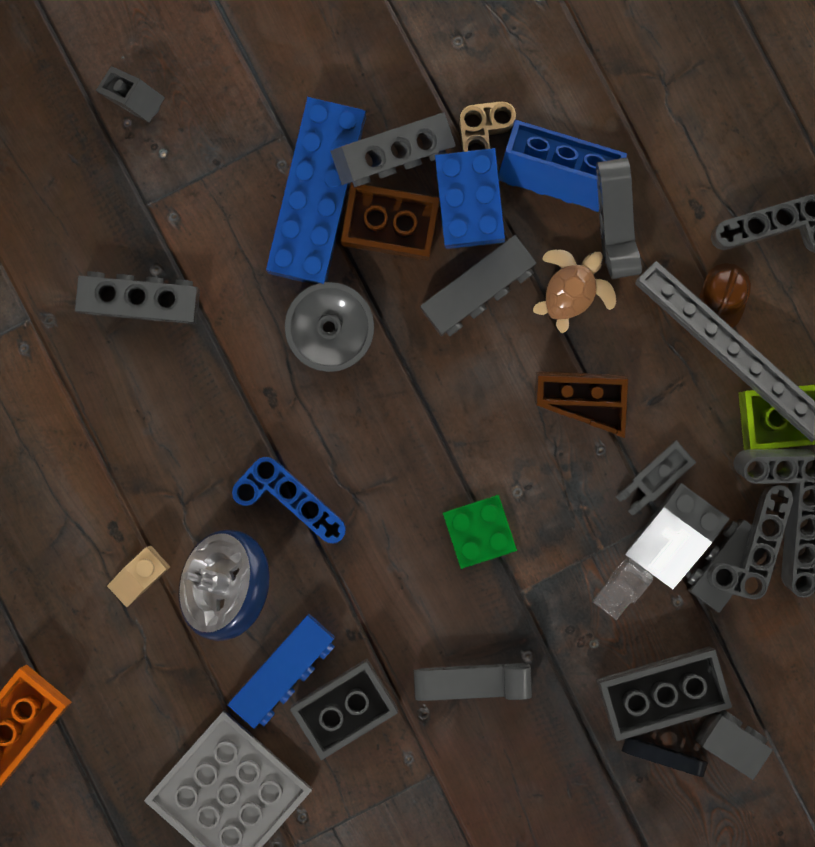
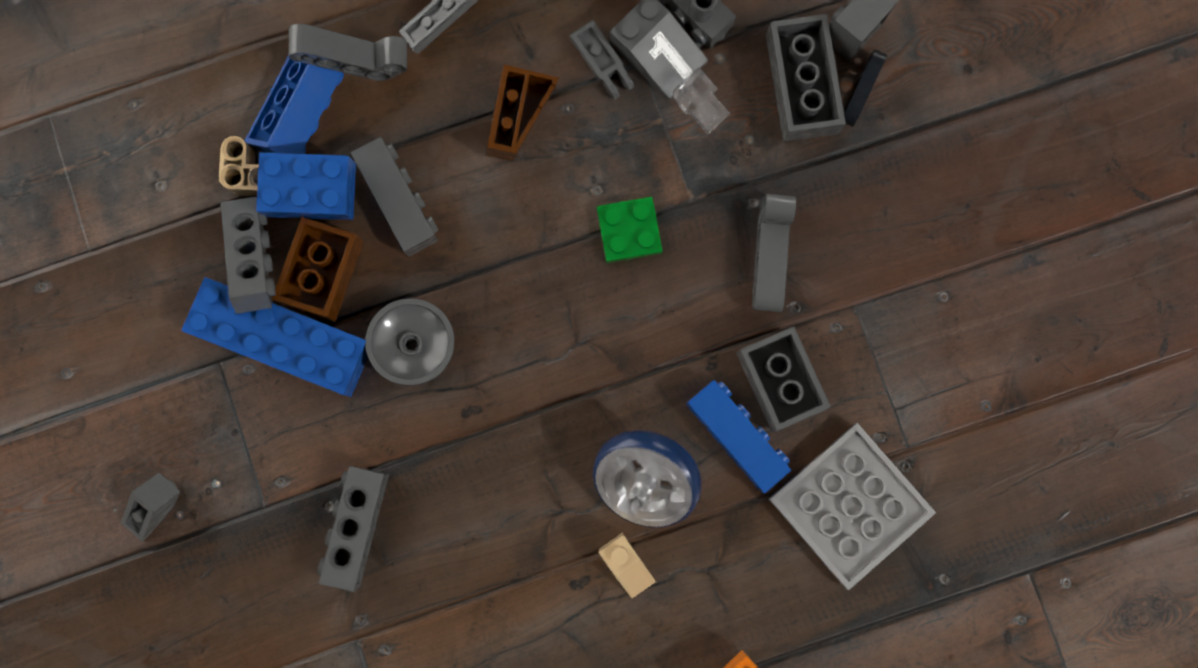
camera: 80 degrees left, 5 degrees down
(294, 504) = (577, 400): blue beam -> none
(573, 287) = (411, 108): animal -> none

